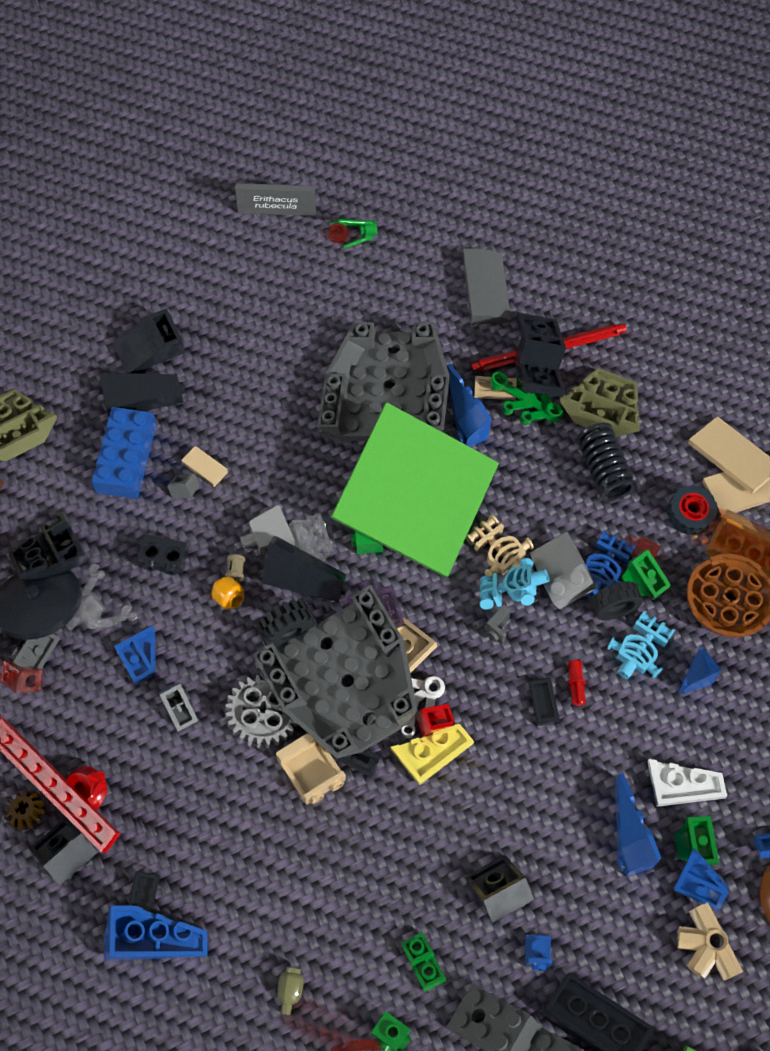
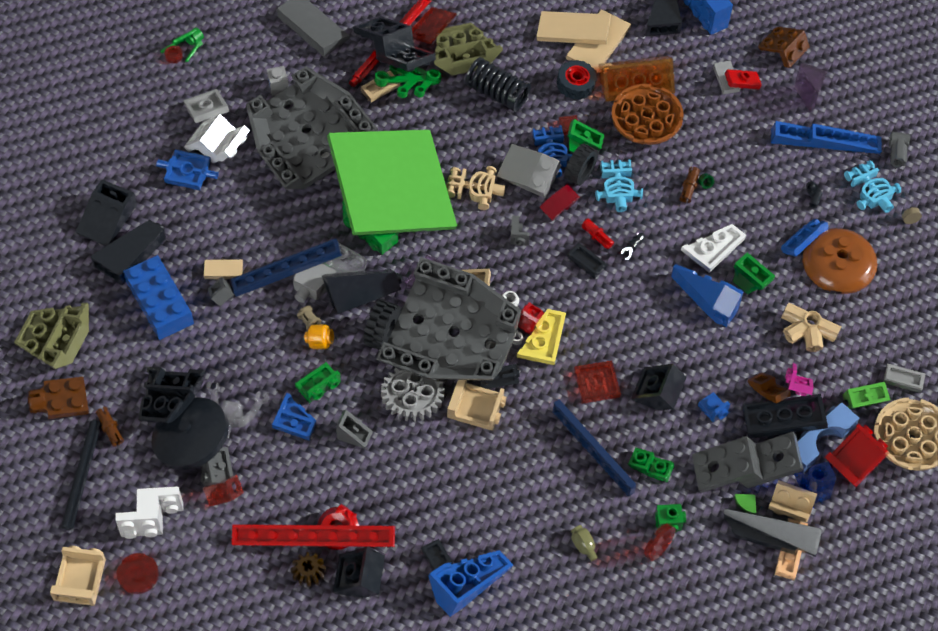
camera: 40 degrees left, 5 degrees down
(165, 550) = (248, 340): black brick -> none
(189, 636) = (318, 382): none -> green bracket
(254, 350) = (187, 169): none -> blue plate
(254, 505) = (286, 267): none -> dark blue tile
(276, 199) = (110, 56): dark grey tile -> none
(301, 339) = (217, 139): none -> white bracket
(320, 301) = (206, 106): none -> light grey hinge
(381, 890) = (594, 448): none -> dark blue tile
(404, 318) = (277, 79): none -> light grey brick
(446, 834) = (597, 382): none -> clear red tile
(469, 414) = (383, 111): blue wedge -> none
(518, 582) = (511, 195): medium azure piece -> none
(566, 623) = (559, 201): none -> dark red slope
(595, 359) = (432, 24): none -> clear red container
(601, 720) = (632, 245): none -> black piece
(609, 977) = (767, 387): none -> reddish brown slope
(643, 997) = (801, 385): none -> dark pink bracket
(701, 673) = (667, 172): blue slope -> none
(701, 882) = (774, 294): blue wing -> none
(715, 699) = (689, 184): none -> reddish brown pin
(736, 712) = (709, 179): none -> dark green hinge

